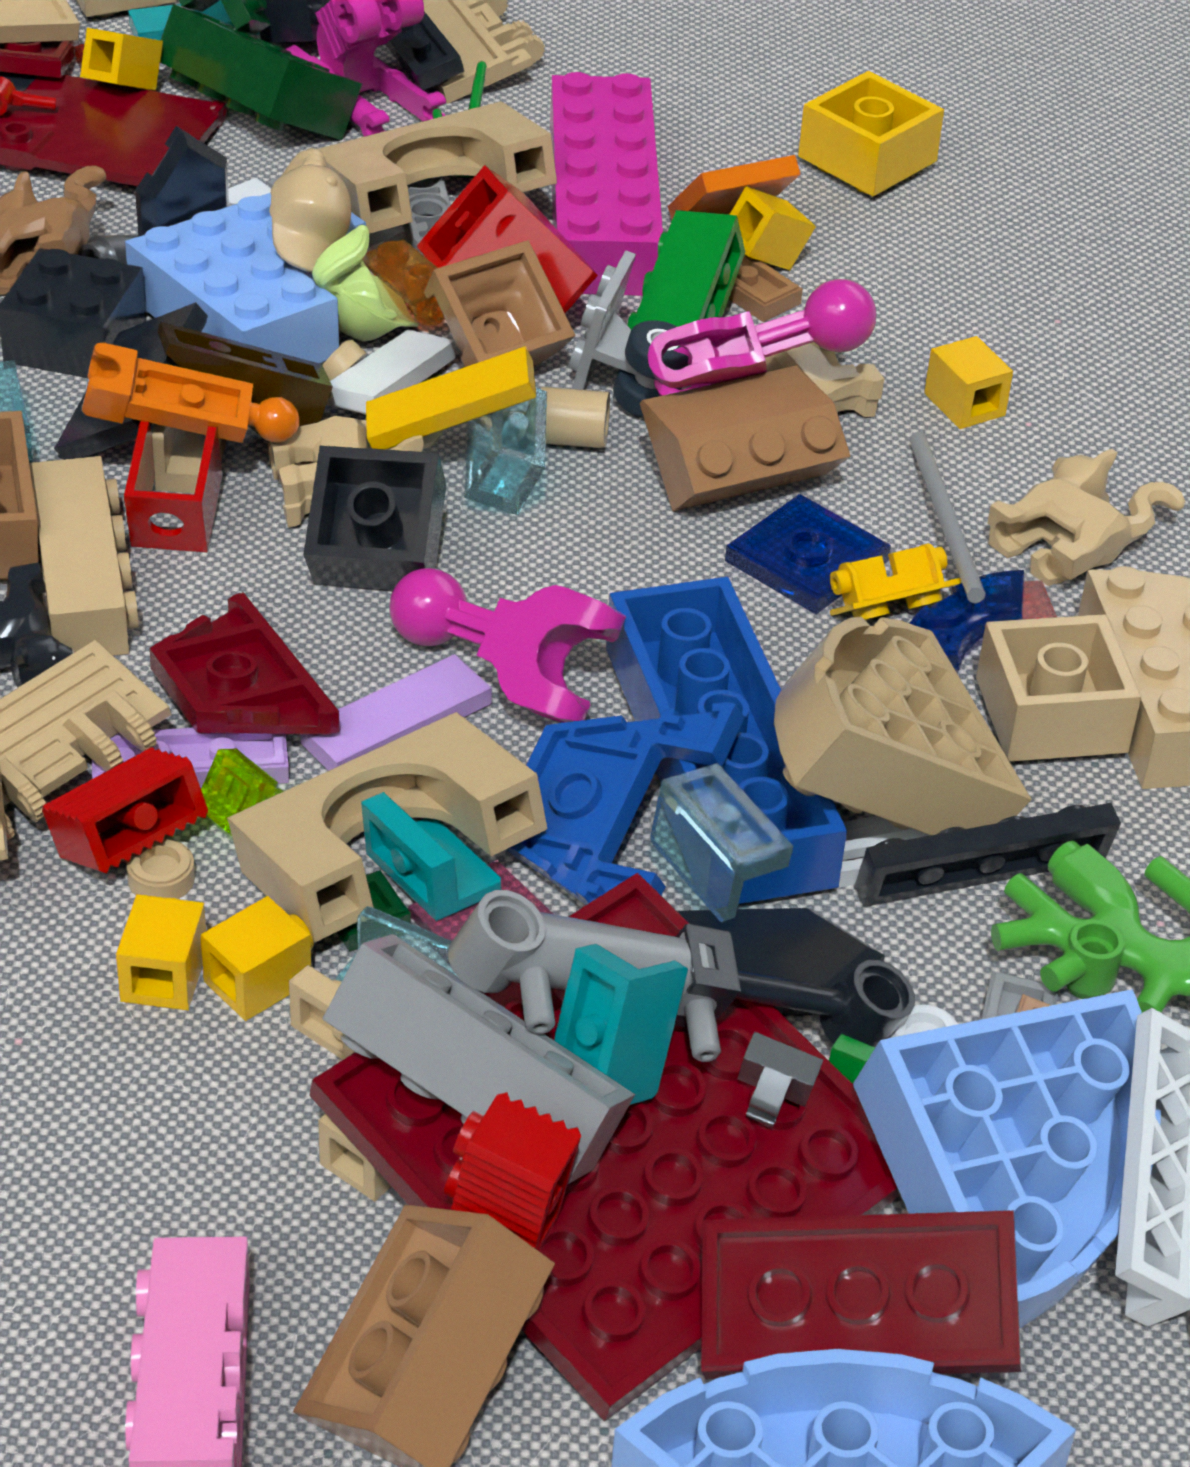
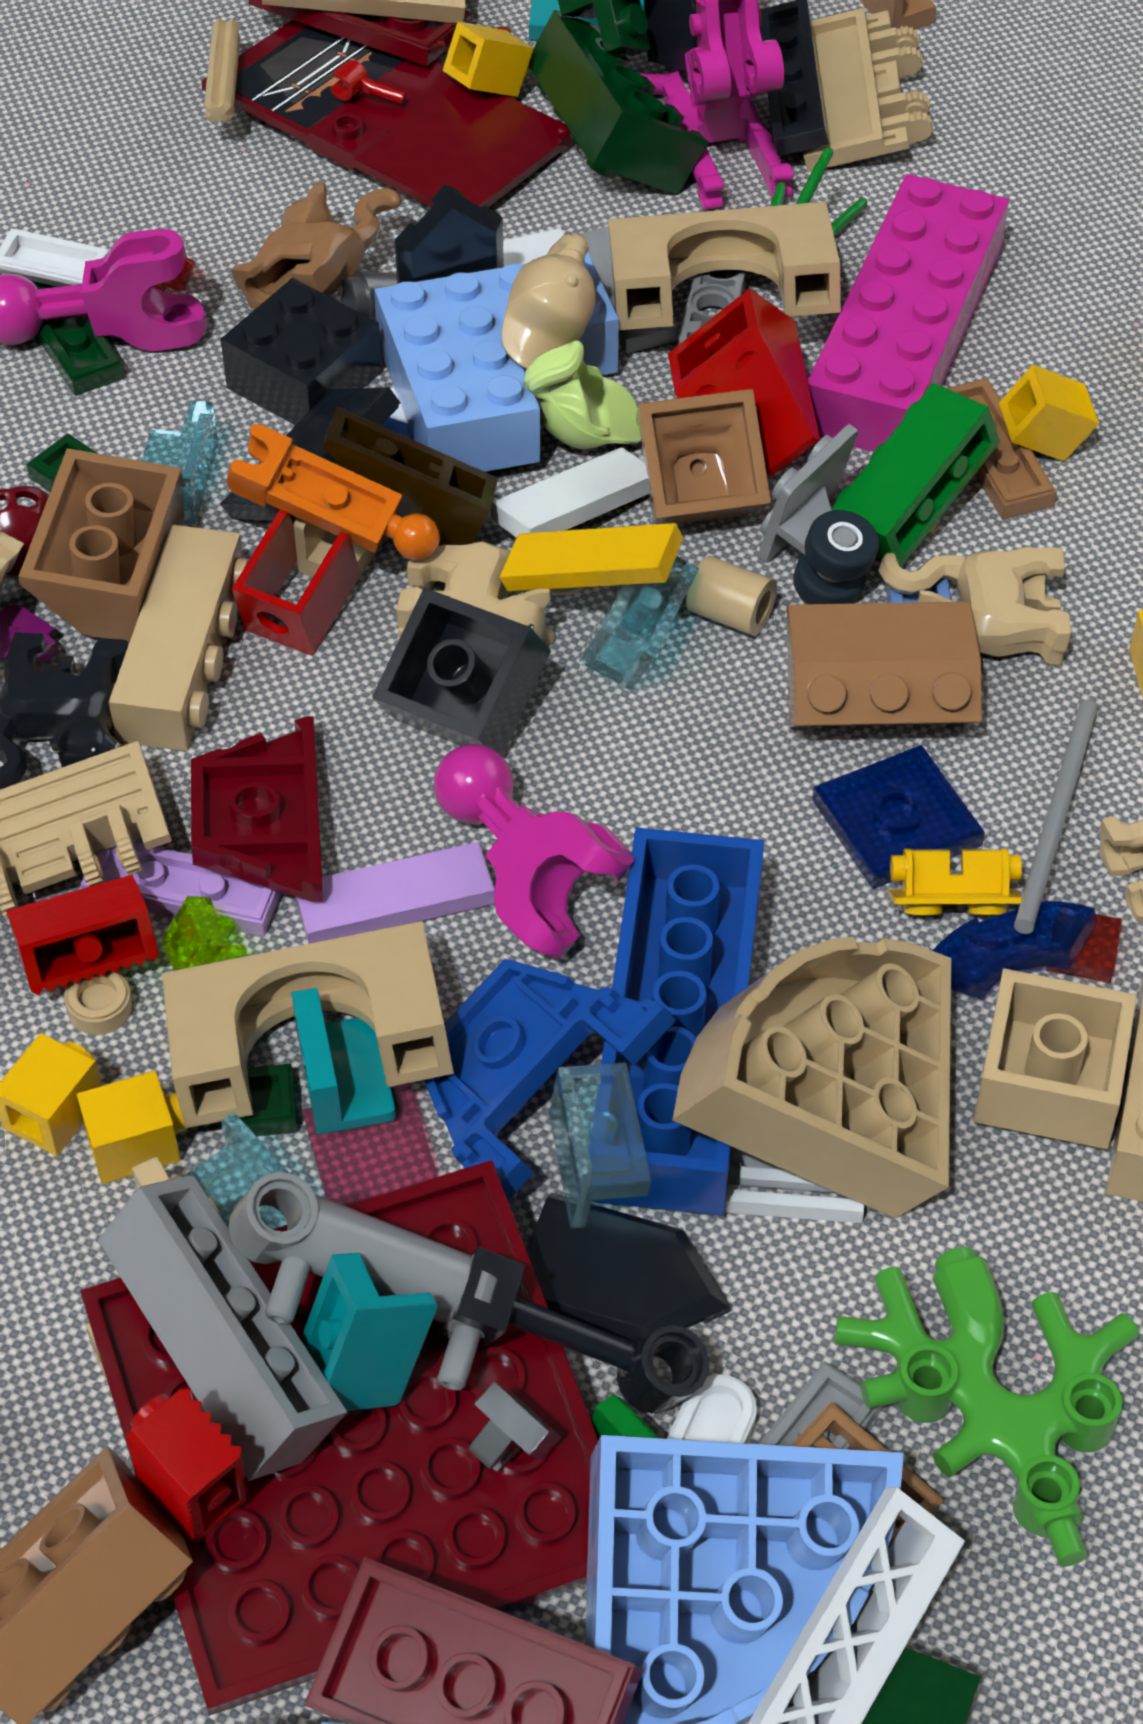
camera: 25 degrees right, 10 degrees up
(343, 358) = (530, 472): tan tile -> none
(407, 275) = (639, 377): clear orange hinge -> none
(720, 189) = (1016, 357): orange tile -> none
(721, 349) = (1015, 566): dark pink piece -> none
(979, 854) = (857, 1225): black plate -> none

